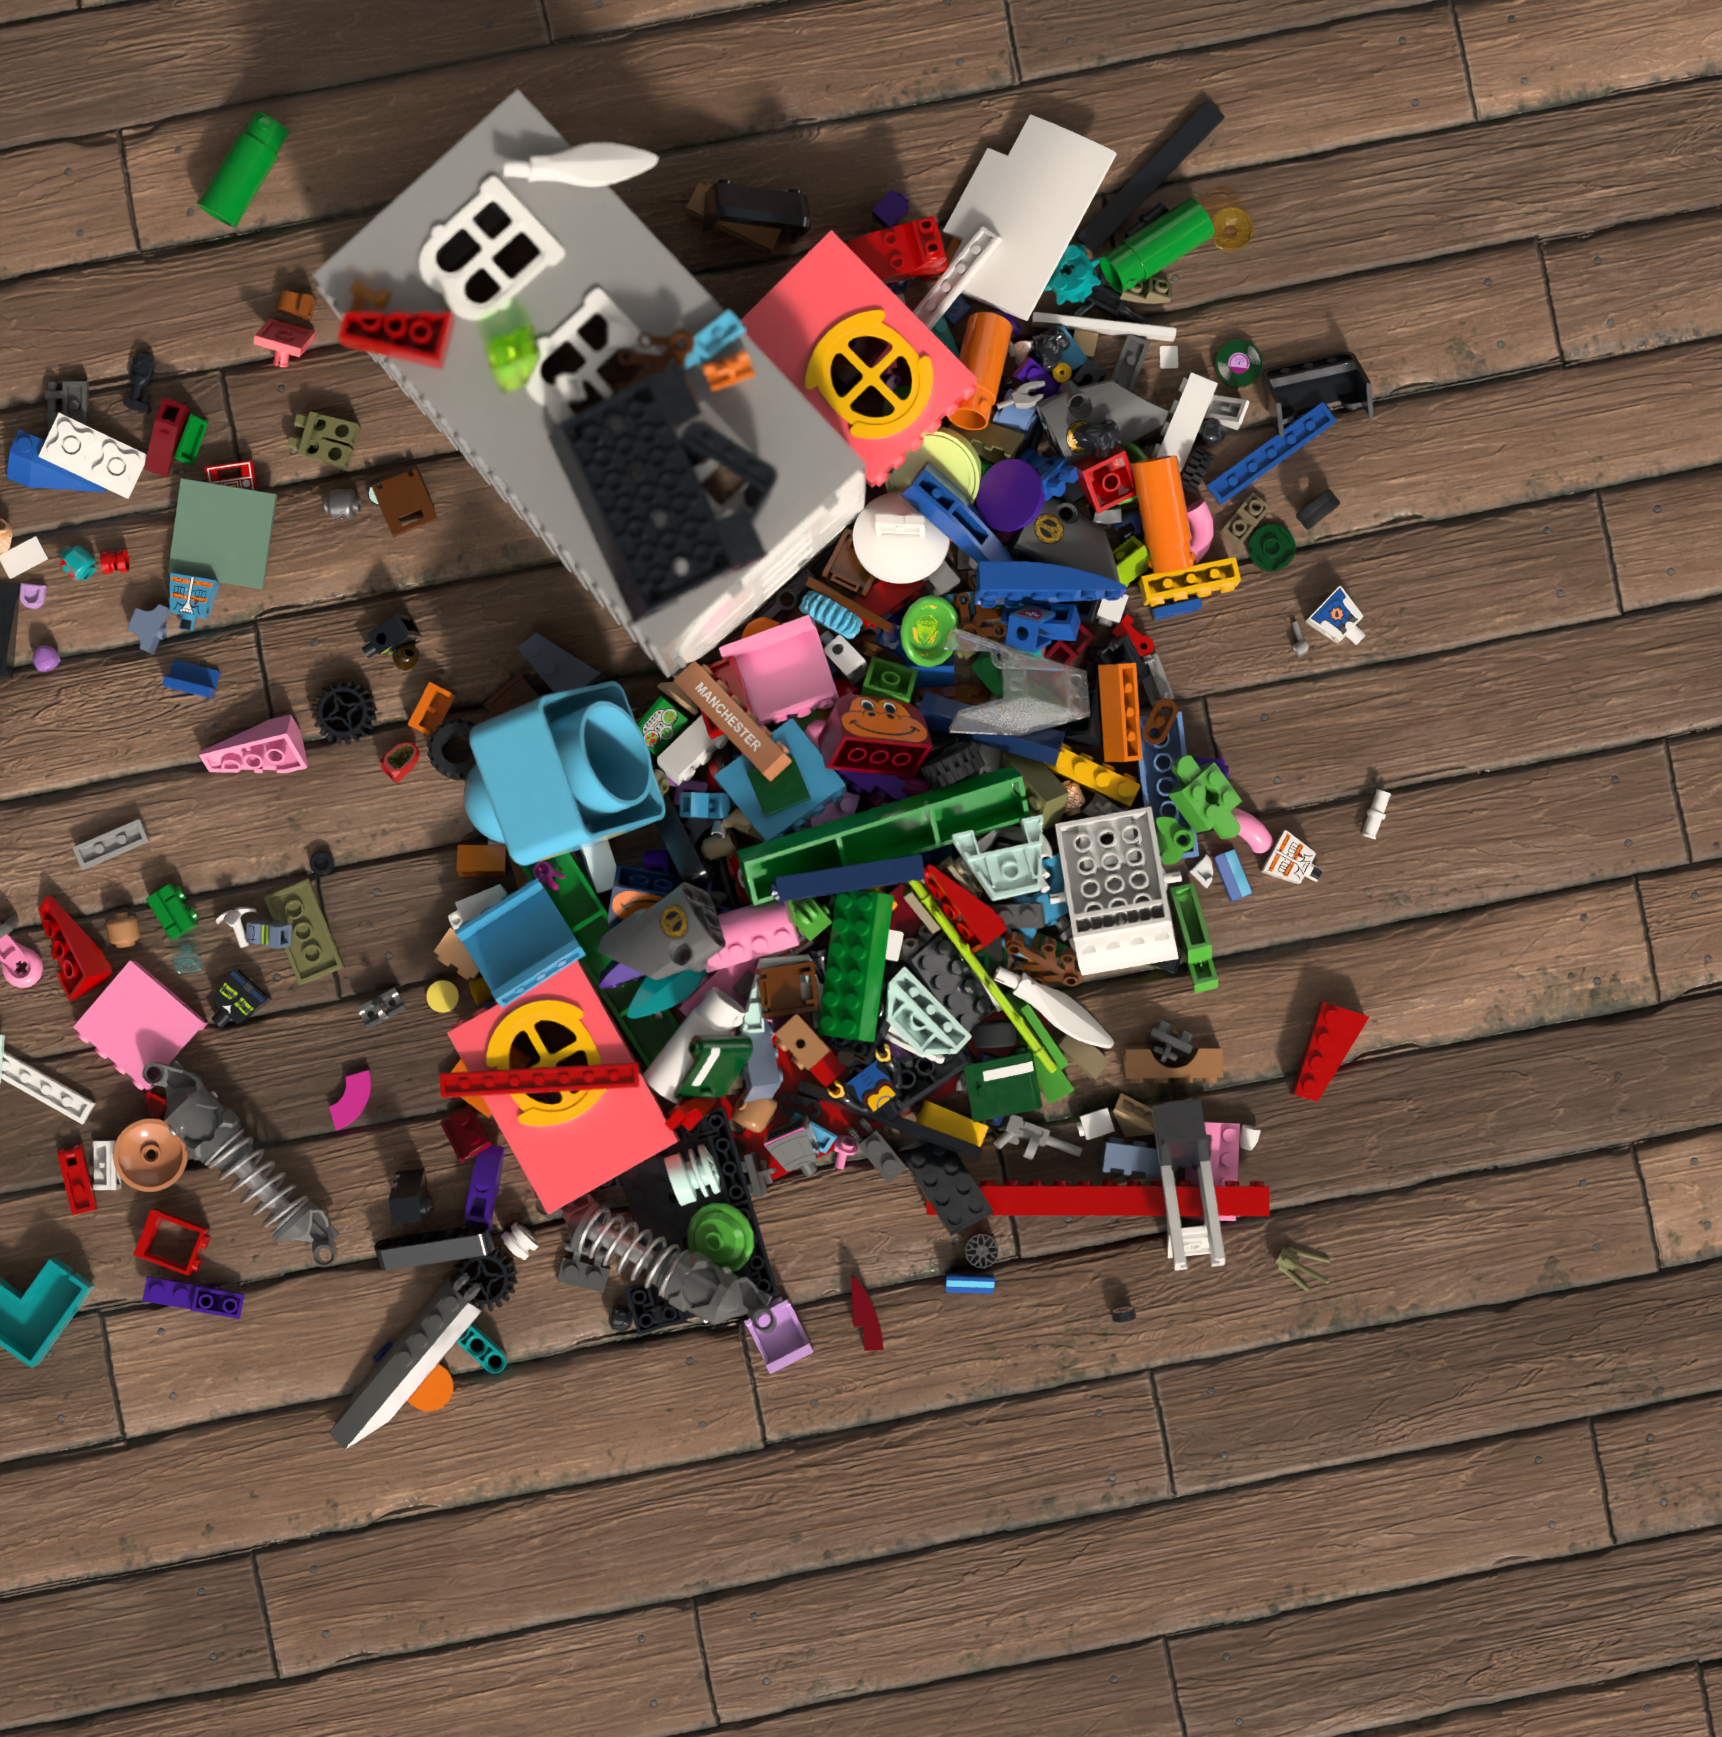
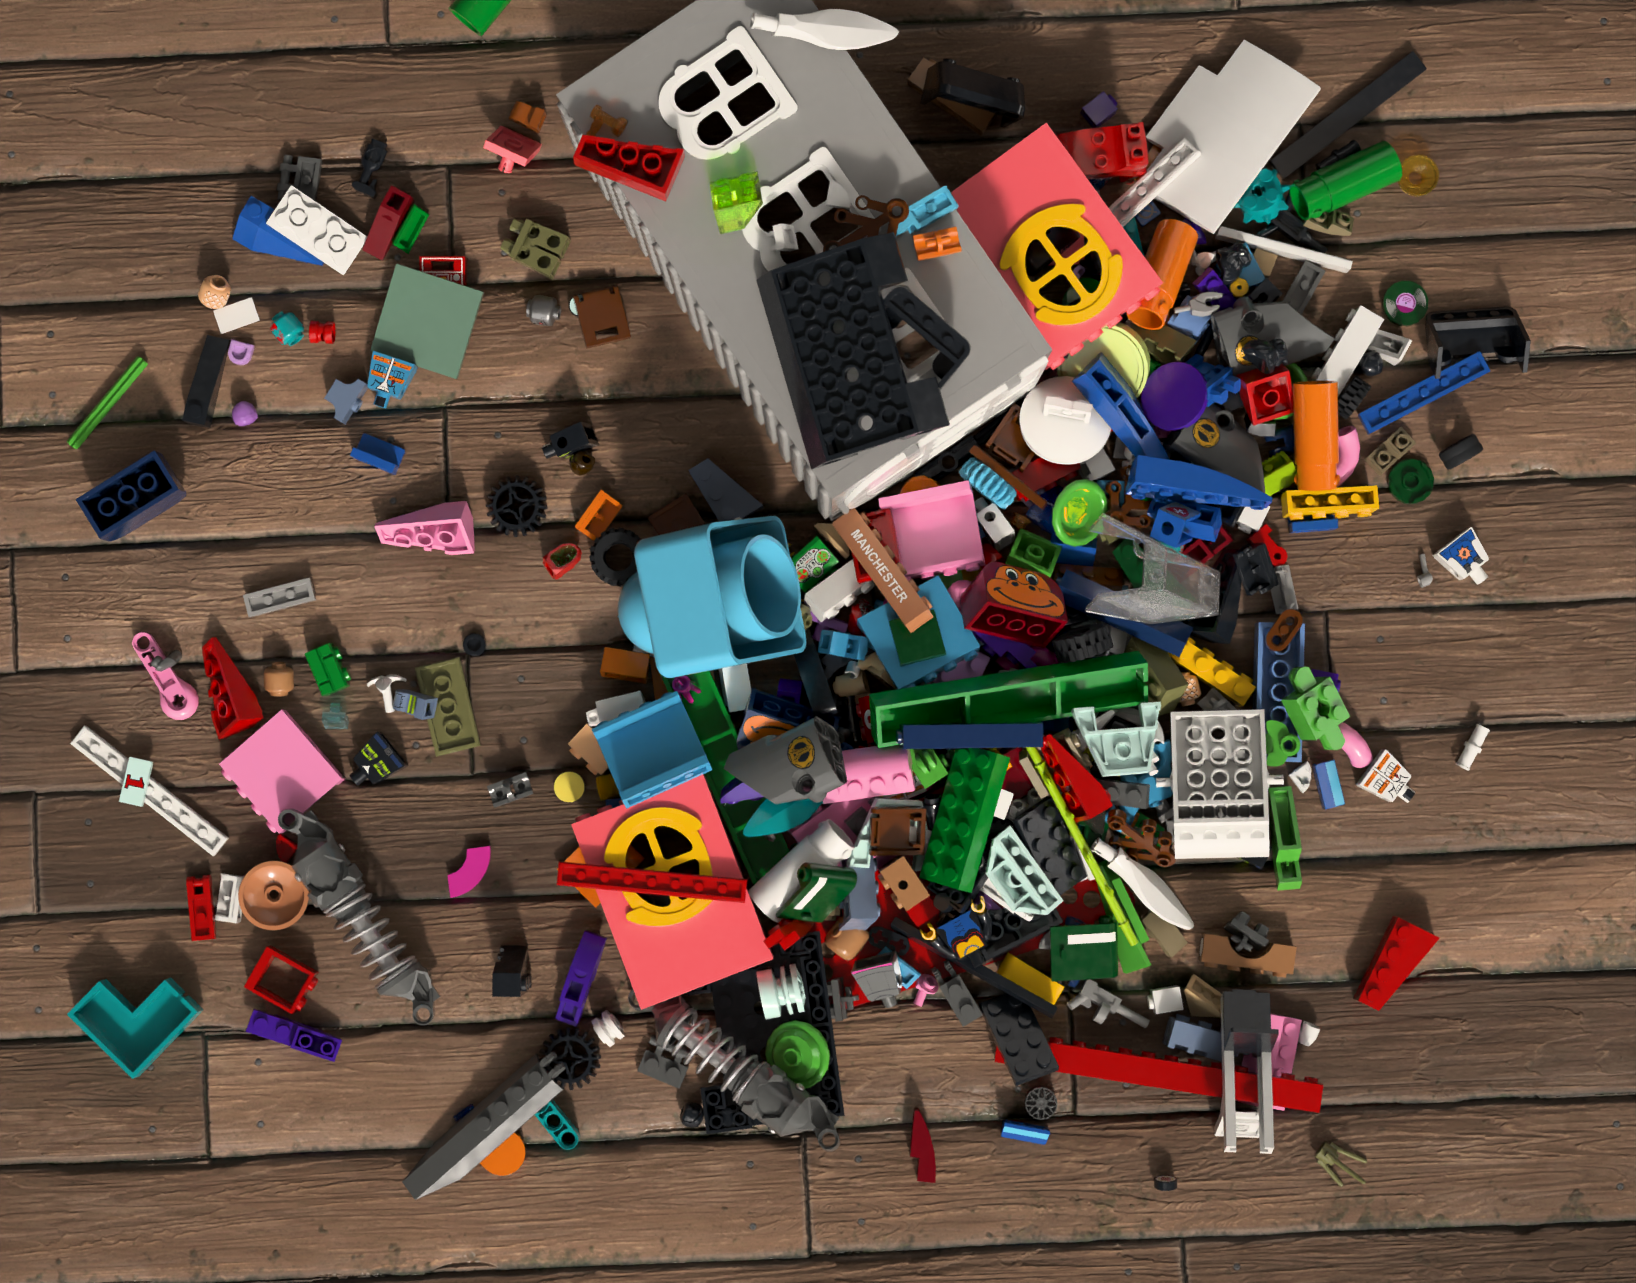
camera: 10 degrees right, 0 degrees up
(434, 1247) = (527, 1022): black beam -> none
(466, 1133) = (572, 919): dark red plate -> none
(786, 1342) = (845, 1162): lavender panel -> none
(994, 1034) = (1083, 901): black tyre -> none
(1120, 712) = (1247, 616): orange brick -> none
(1168, 357) = (1340, 287): white sticker -> none

